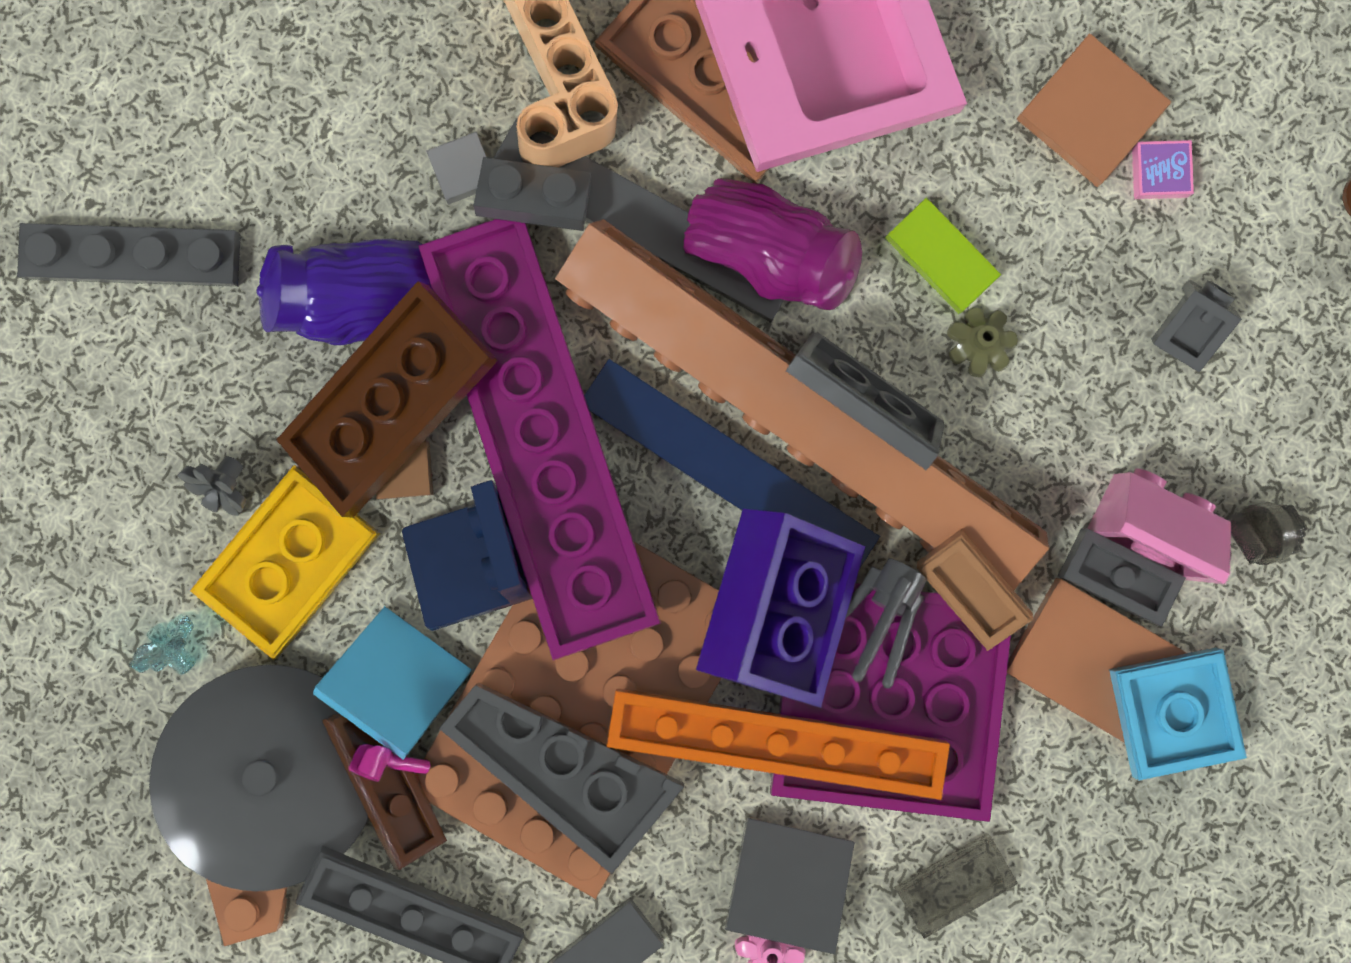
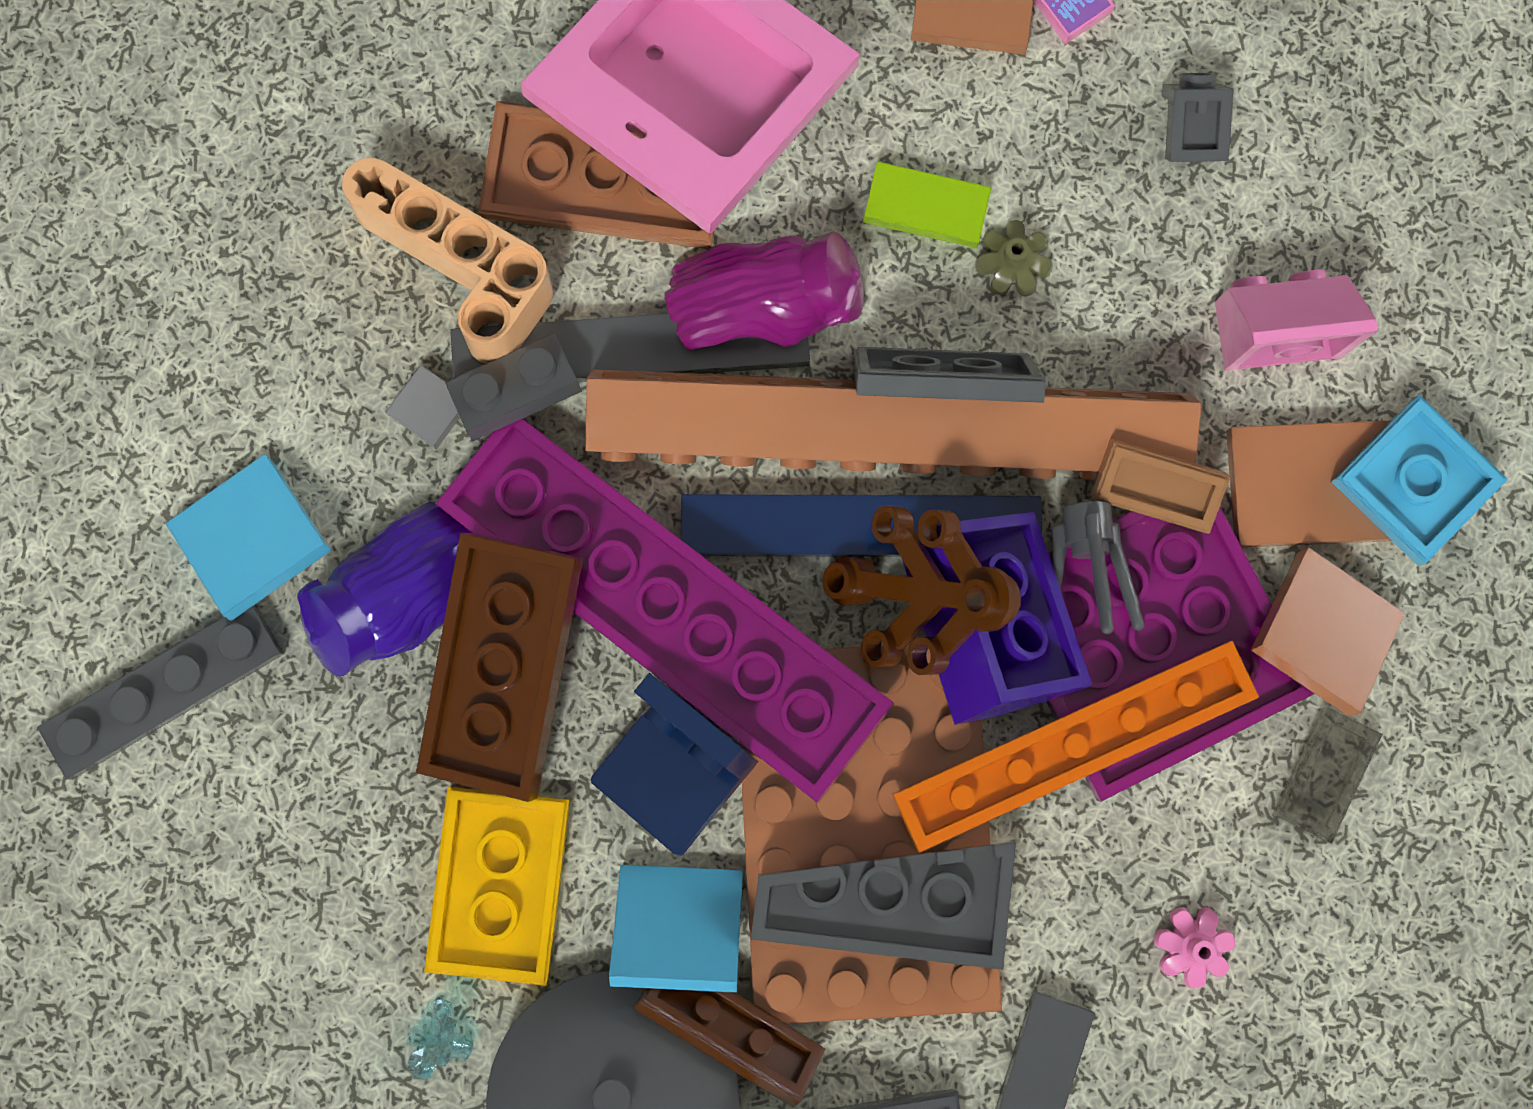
camera: 35 degrees left, 5 degrees down
(216, 485) = (386, 854): dark grey plant -> none
(263, 180) = (248, 537): none -> medium azure tile
(371, 762) = (708, 1012): dark pink hand -> none
(412, 478) = (568, 727): medium nougat tile -> none
(776, 590) = (984, 598): none -> reddish brown plant
(790, 886) = (1175, 876): dark grey tile -> none
(1029, 782) = (1328, 632): none -> nougat tile
(1121, 577) = (1284, 390): dark grey plate -> none
(1268, 532) = (1387, 264): clear smoke piece -> none

